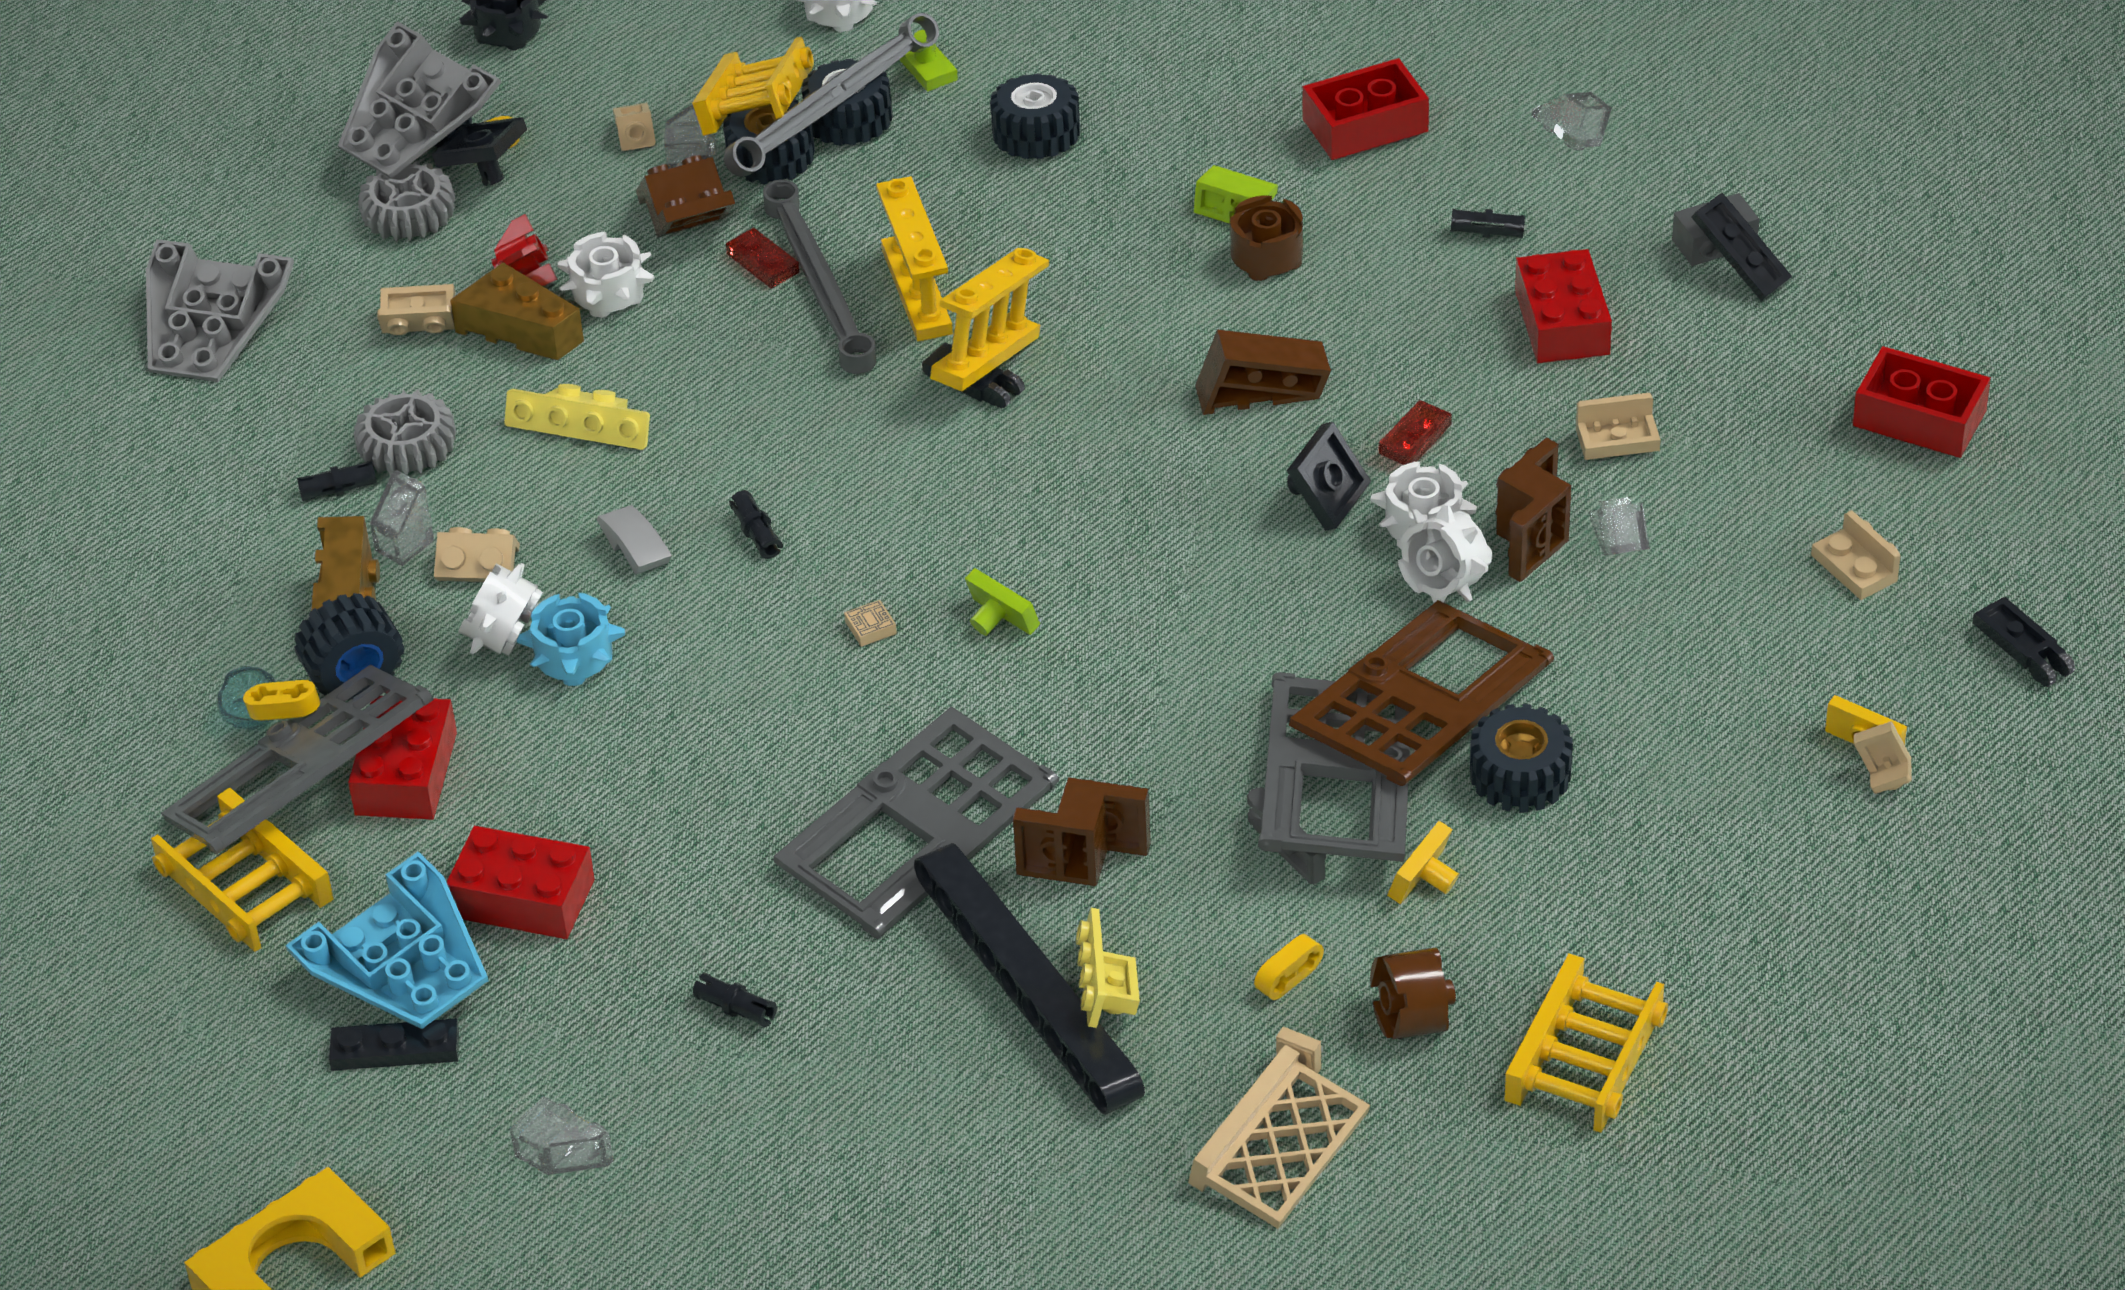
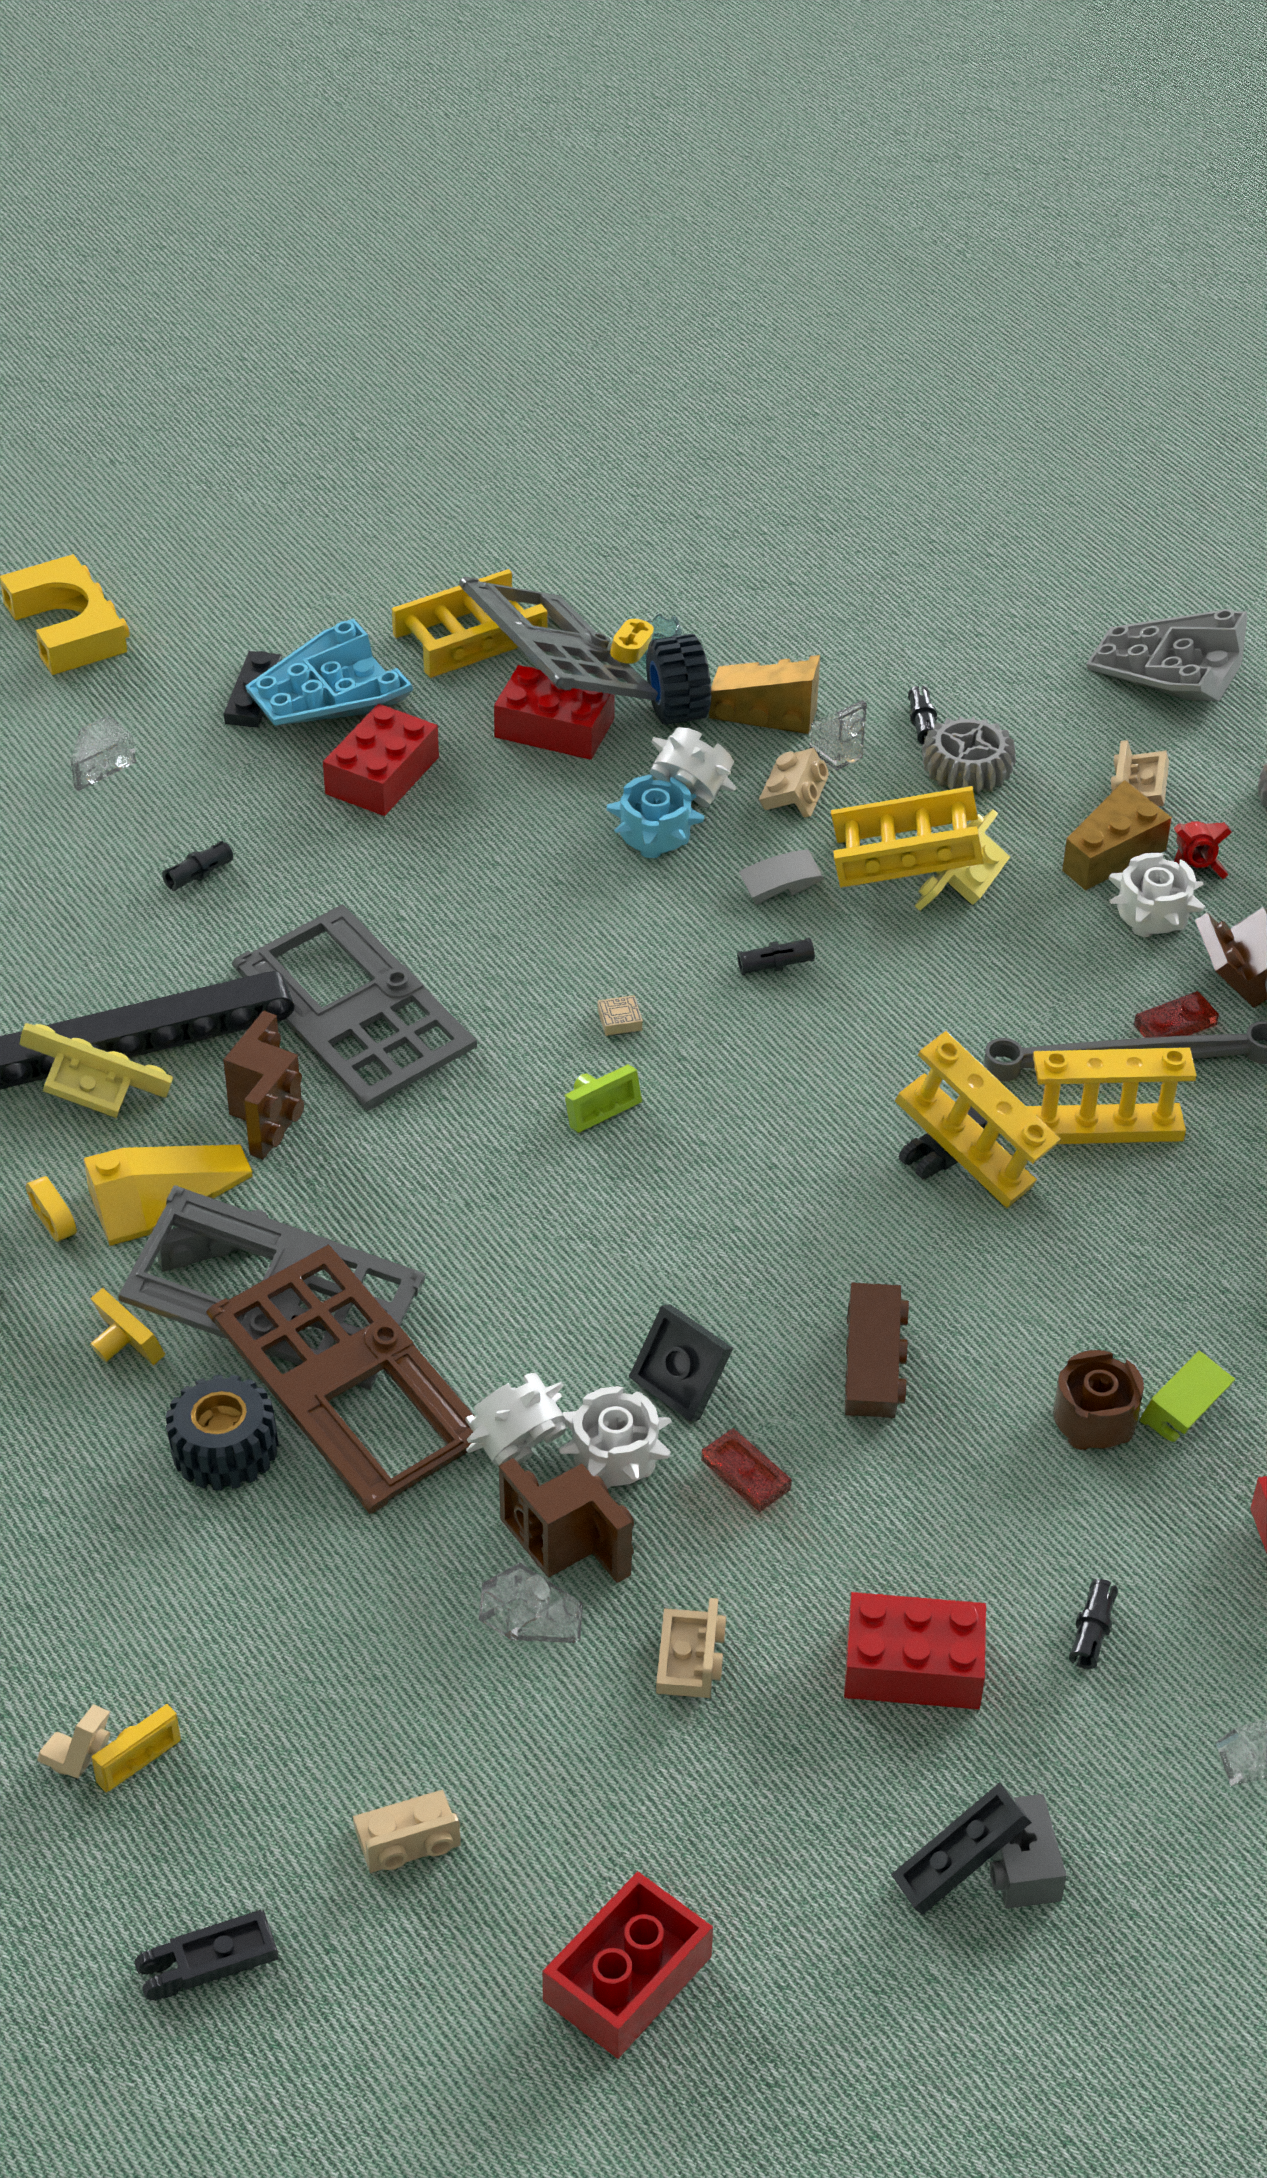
camera: 100 degrees right, 0 degrees up
(607, 446) = (912, 855): none -> yellow fence
(1226, 904) = (134, 1182): none -> yellow wedge

